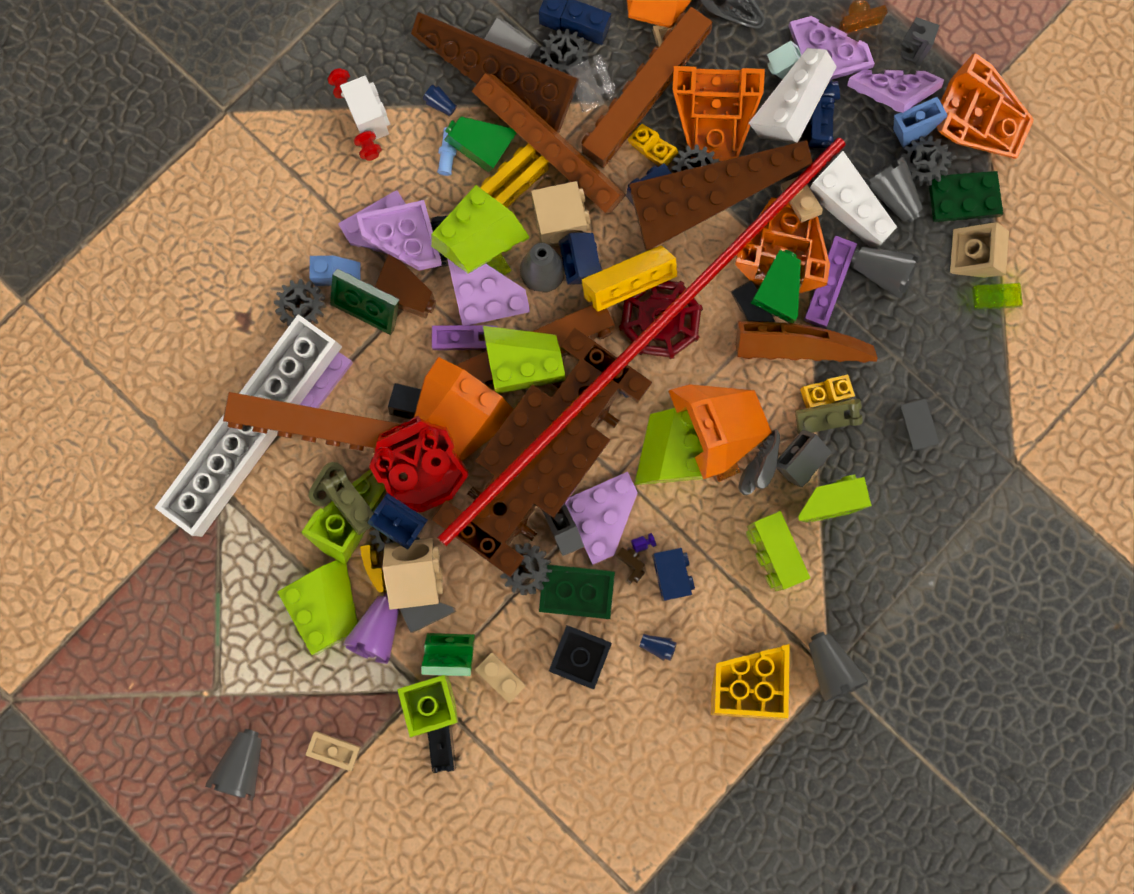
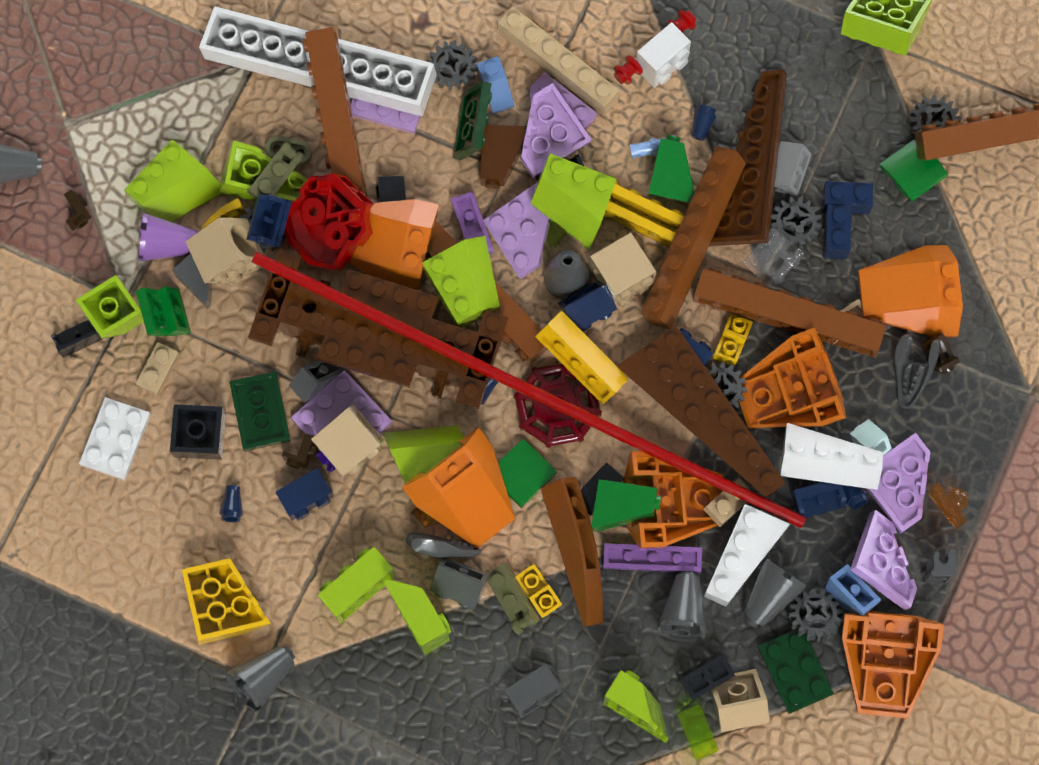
camera: 75 degrees right, 5 degrees down
(307, 705) = (81, 216): none -> dark brown bracket
(333, 206) = (558, 61): none -> tan brick
(333, 751) = (45, 242): tan plate -> none
(538, 573) = (266, 357): dark grey gear -> none
(556, 740) = (115, 439): none -> white plate
(639, 515) = (348, 440): none -> tan brick
(716, 366) = (524, 473): none -> green slope
(950, 271) = (706, 675): none -> black hinge
(960, 339) = (636, 704): none -> lime wedge

